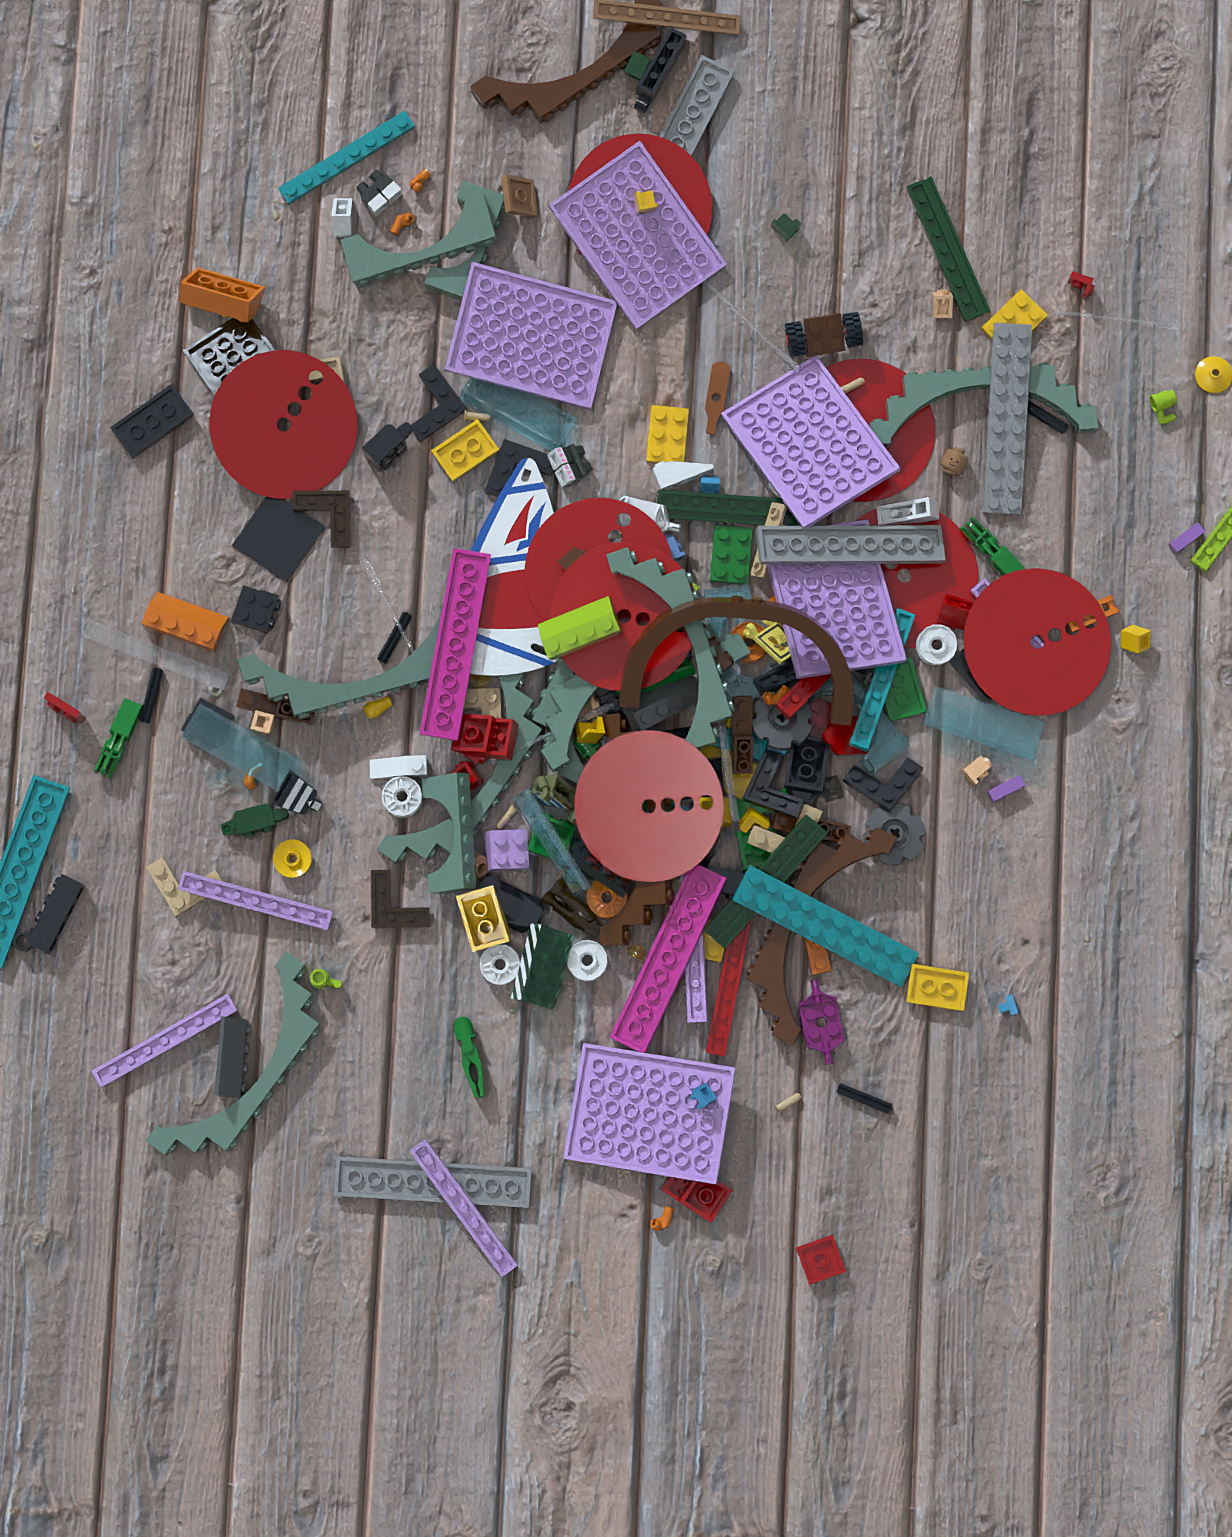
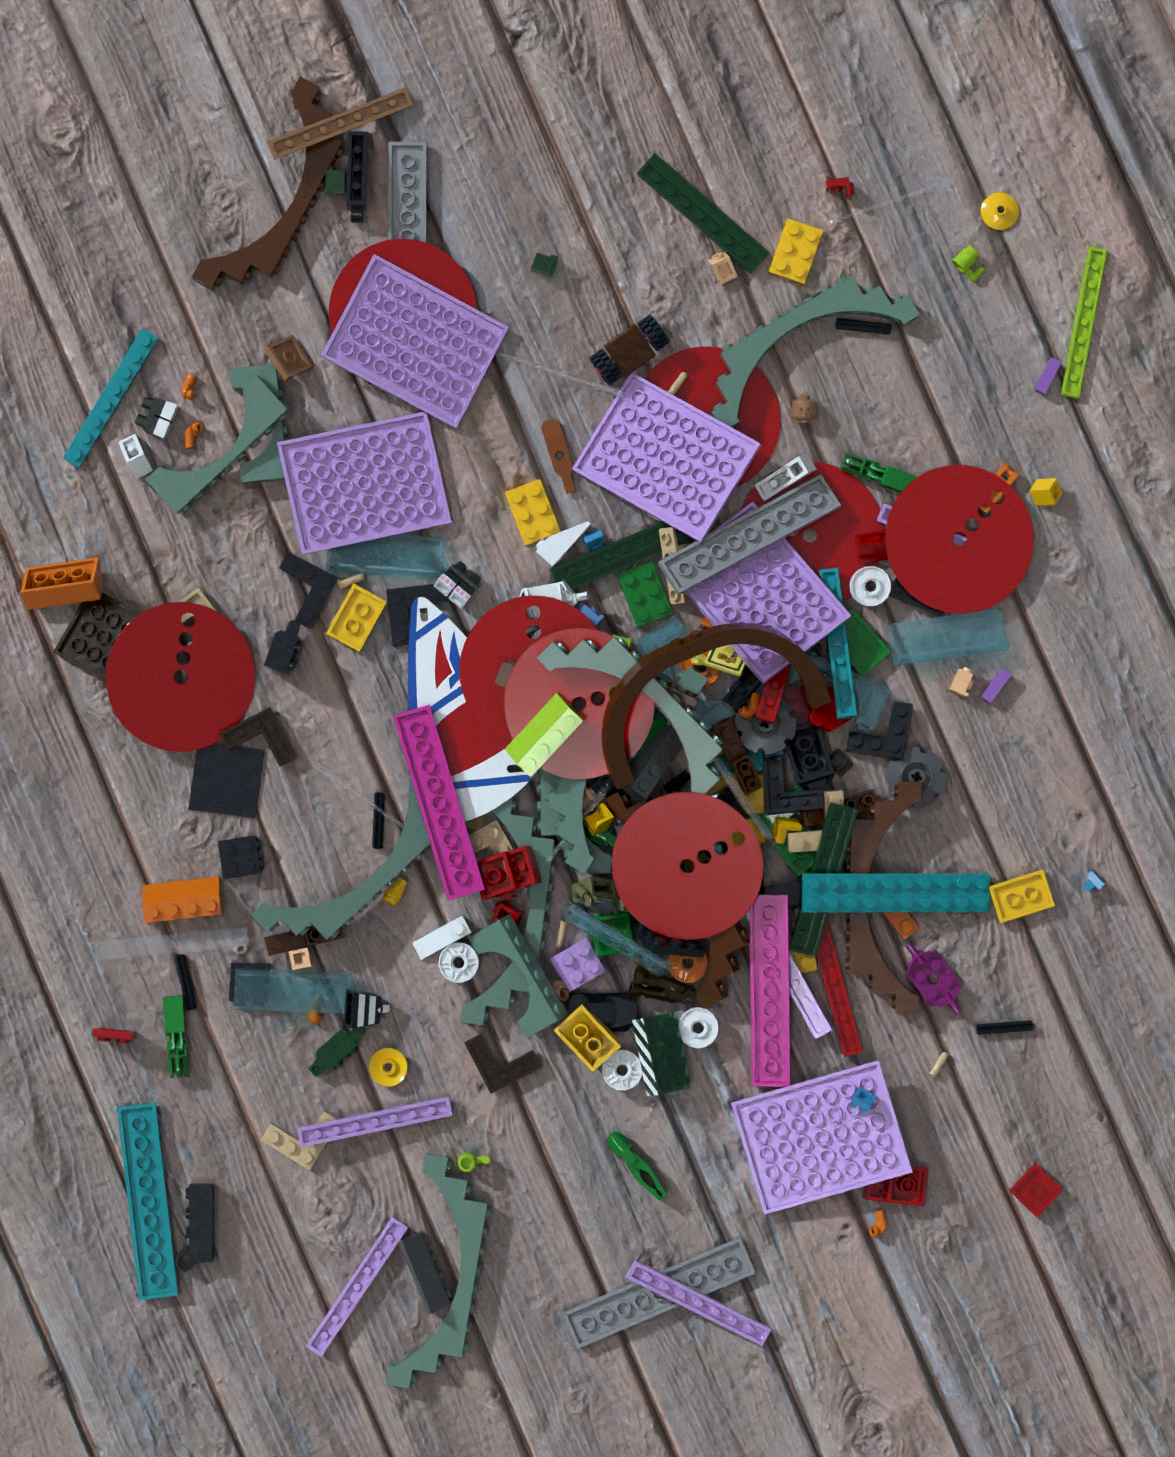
camera: 25 degrees left, 5 degrees up
(152, 421) = (58, 731): black plate -> none
(636, 951) = (737, 997): clear yellow plate -> none
(644, 201) = (407, 308): yellow panel -> none
(1007, 418) = (833, 346): light grey plate -> none

